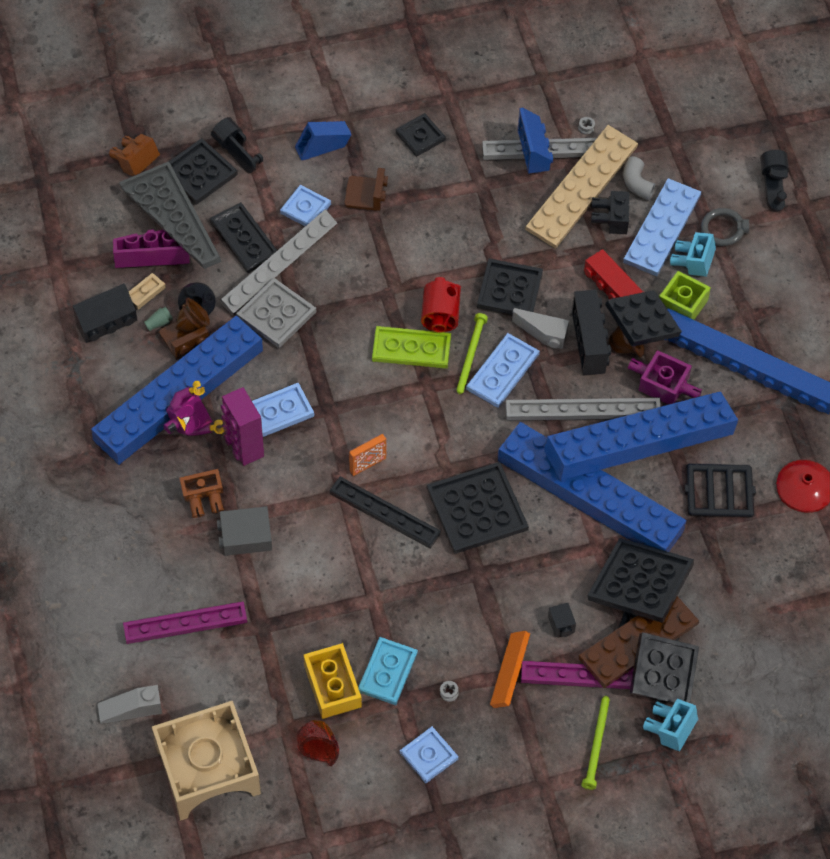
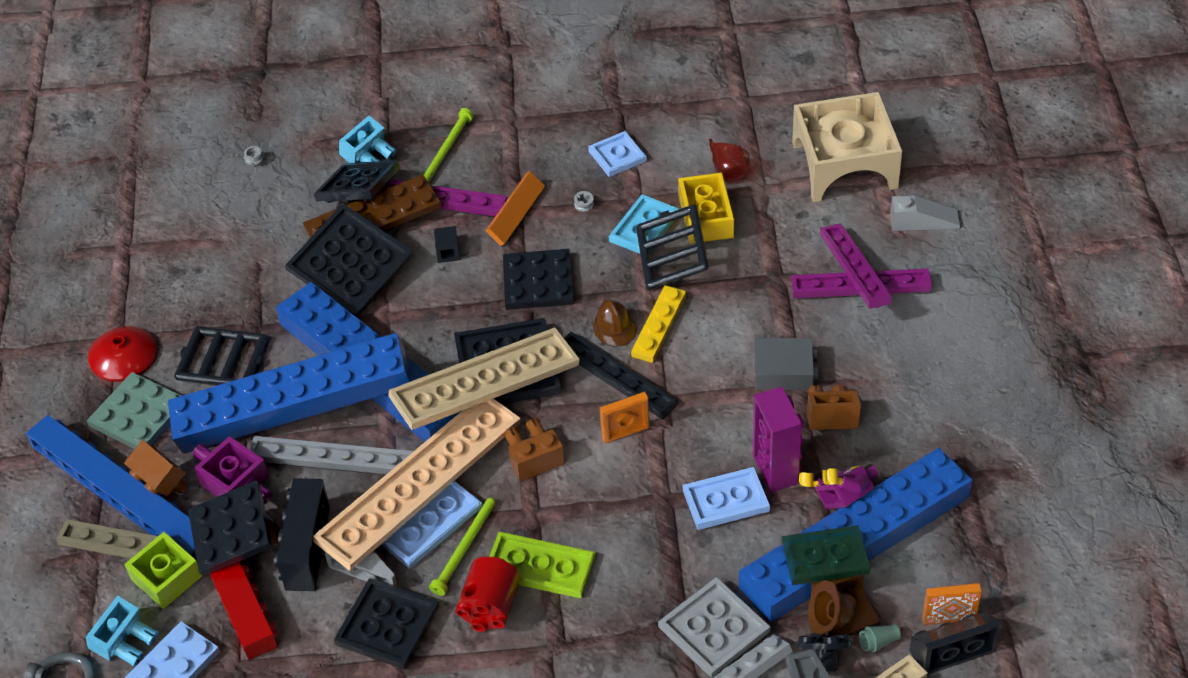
camera: 165 degrees left, 10 degrees down
(107, 335) = (950, 603): none -> orange tile
(191, 626) = (855, 266): none -> magenta plate
(199, 344) = (825, 555): none -> clear green plate
(337, 635) = (699, 247): none -> black bar
(357, 565) = (658, 324): none -> yellow plate
(395, 560) = (614, 324): none -> reddish brown piece
(433, 424) = (534, 454): none -> dark orange brick
(472, 599) = (537, 279): none -> black plate
(486, 465) = (483, 378): none -> tan plate
(515, 384) = (414, 482): none -> light nougat plate
(721, 360) = (156, 470): none -> dark orange brick
(739, 323) = (103, 539): none -> dark tan plate
(766, 432) = (134, 412): none -> sand green plate
(780, 702) = (253, 155): none -> light grey plate

